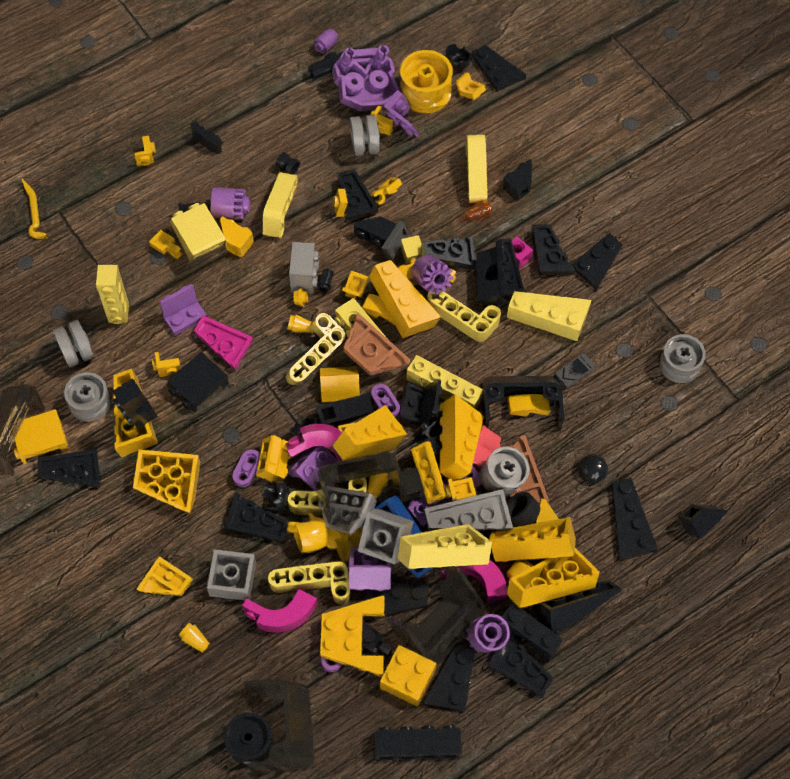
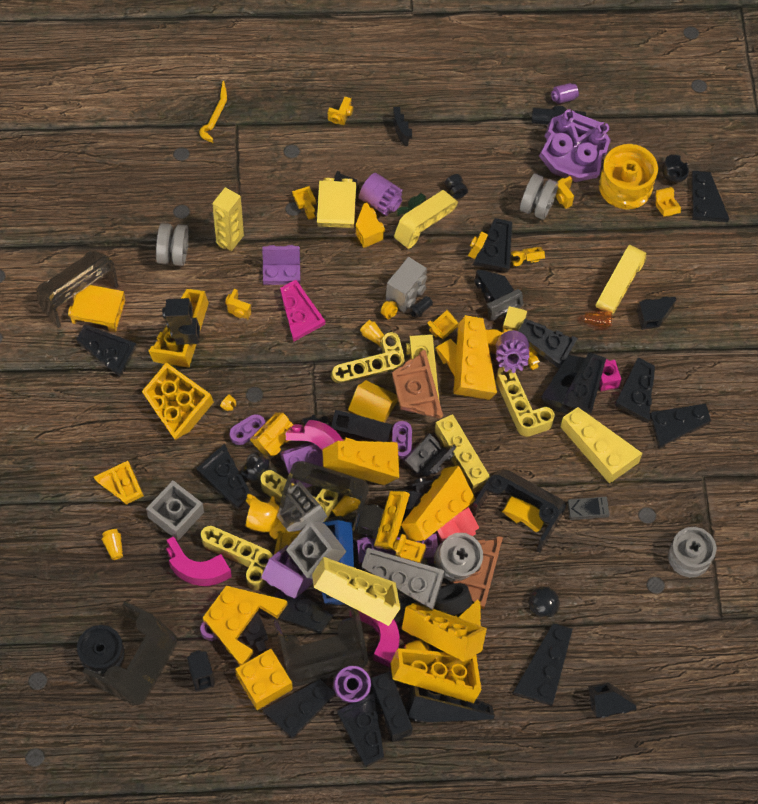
camera: 30 degrees right, 0 degrees up
(87, 396) = (152, 293): light grey wheel -> none
(196, 381) = (253, 332): black panel -> none
(215, 455) = (228, 403): none -> yellow hinge
(262, 197) = (413, 202): none -> clear green plate
(349, 701) = (201, 670): none -> black brick
(397, 107) = (584, 187): medium lavender bracket -> none
(418, 743) = (234, 739): black brick -> none

